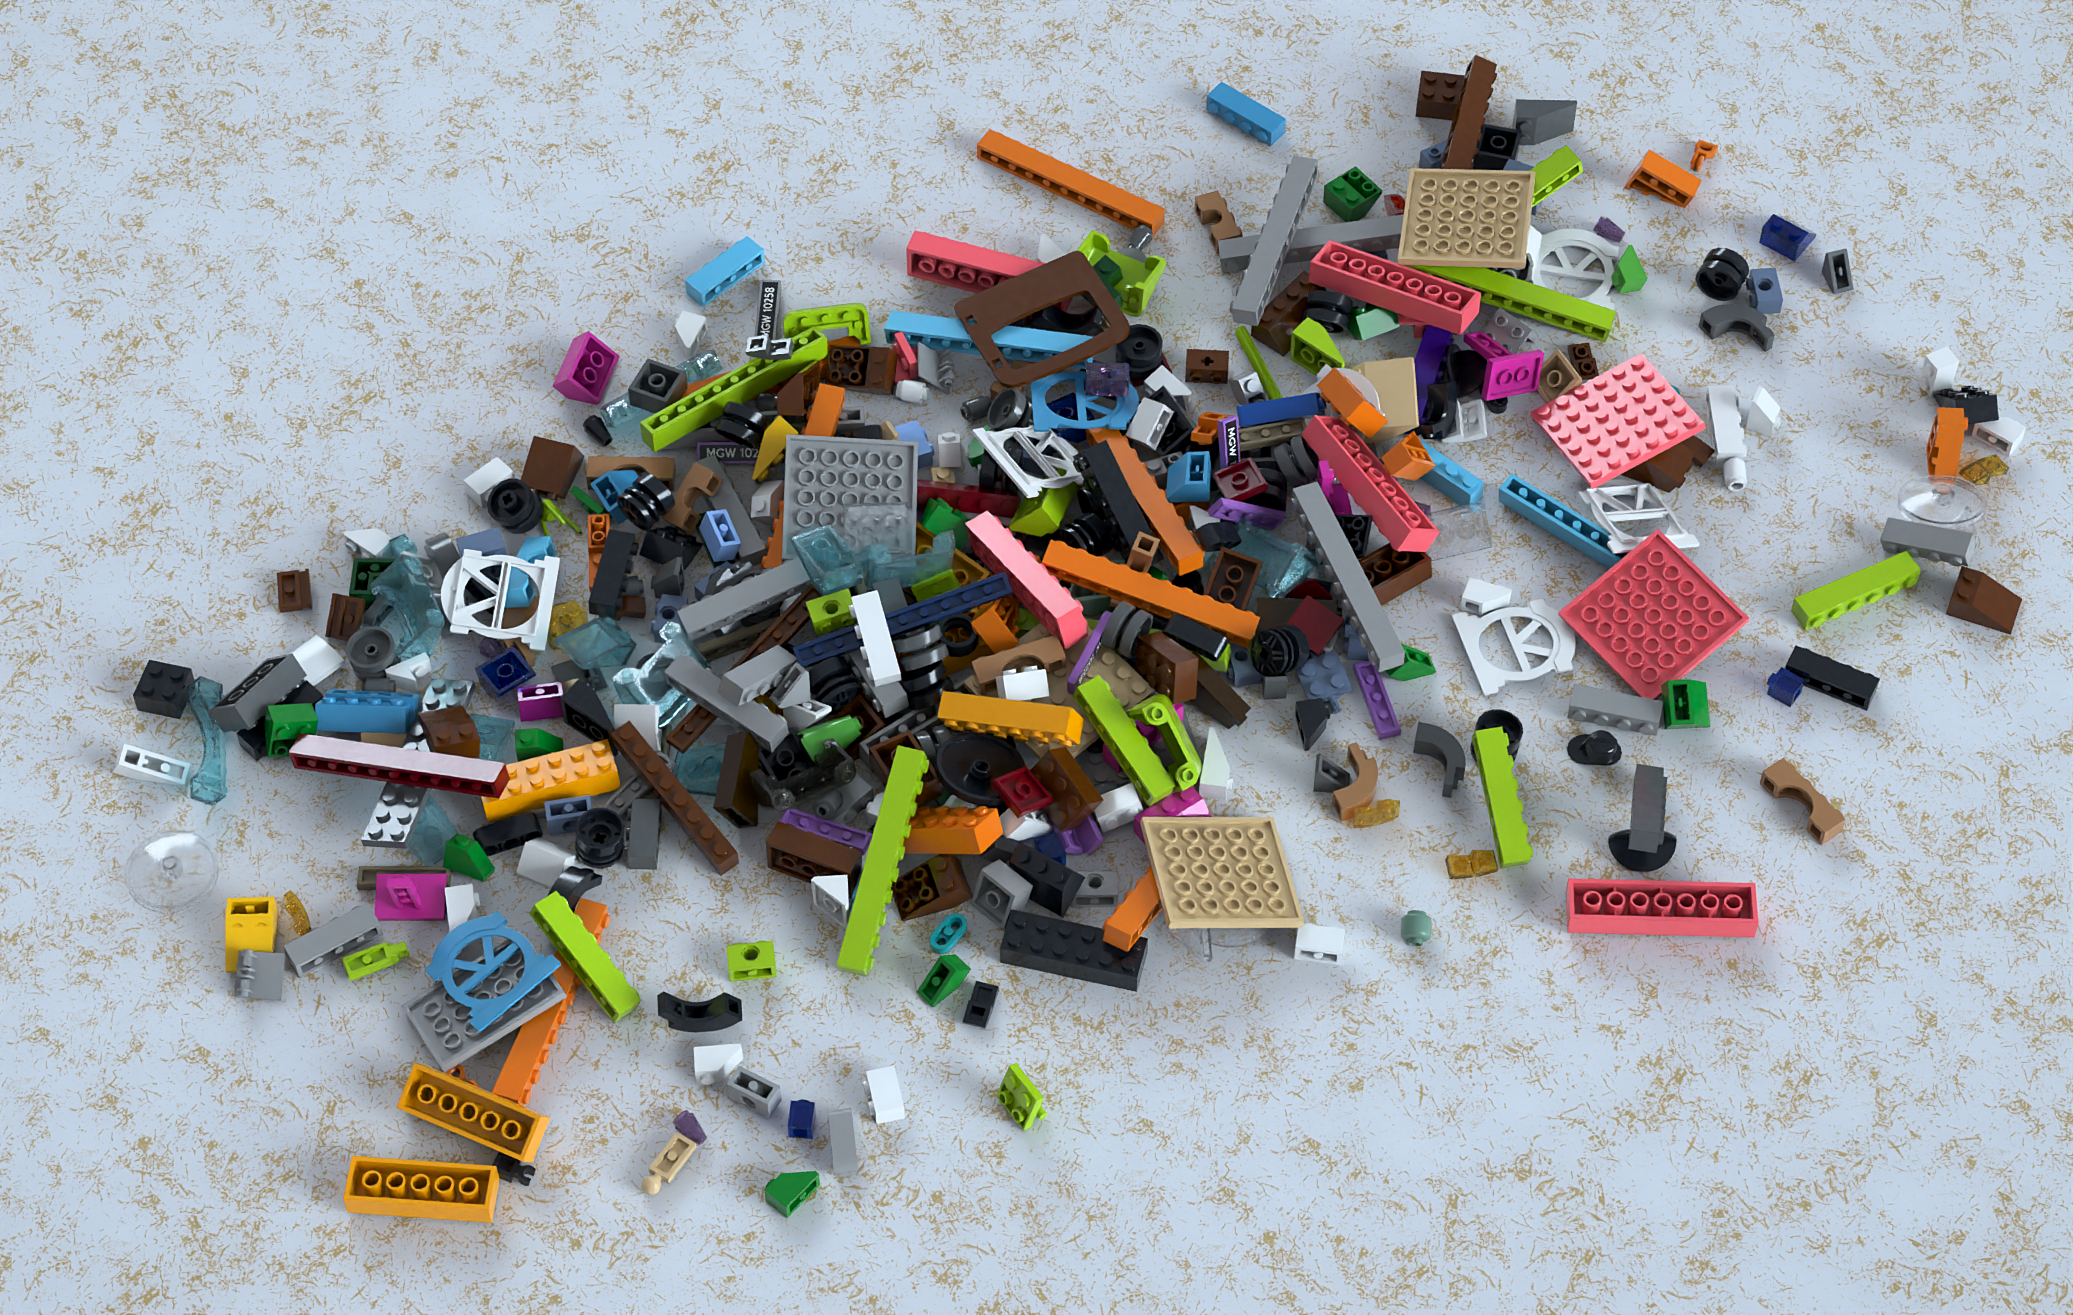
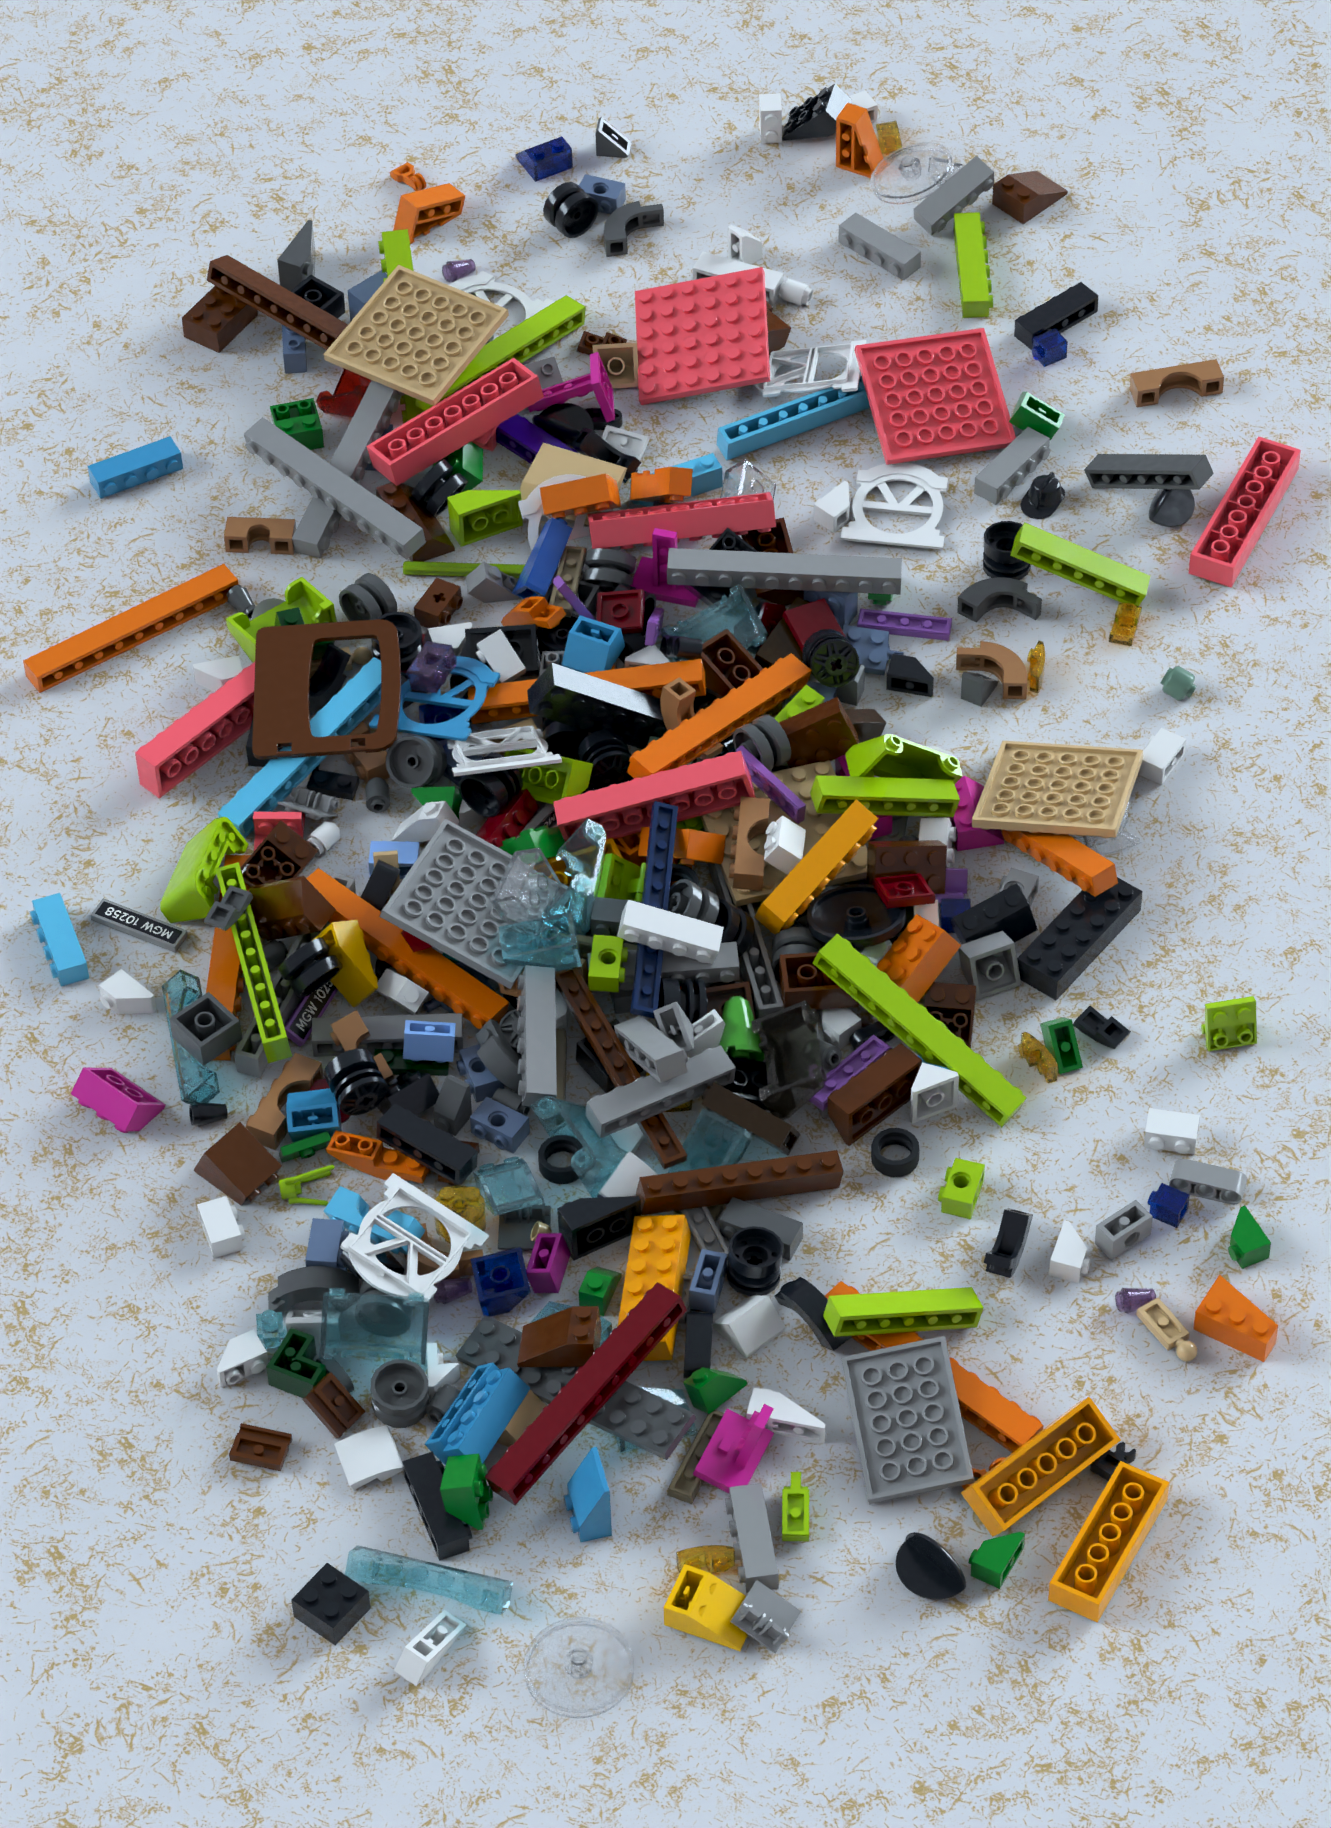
camera: 65 degrees left, 5 degrees down
(260, 689) = (402, 1505): dark grey brick -> none
(317, 816) = (589, 1499): none -> dark azure slope
(348, 1072) = (928, 1568): none -> black piece
(377, 1117) = (996, 1558): none -> green slope
(444, 961) = (822, 1385): dark azure window -> none
(515, 506) = (268, 1218): black wheel -> none
(695, 1208) = (1235, 1321): none -> orange wedge
(773, 914) = (900, 1137): none -> black tyre
(924, 962) = (1038, 1054): none -> clear yellow slope
(947, 935) = (1008, 1027): teal plate -> none
(977, 376) = (333, 784): none -> black plate
(1173, 316) = (367, 599): none -> dark grey wheel
(1195, 637) = (796, 699): black beam -> none
(1629, 273) = (519, 272): bright green slope -> none
(1834, 513) = (879, 246): none -> light grey brick

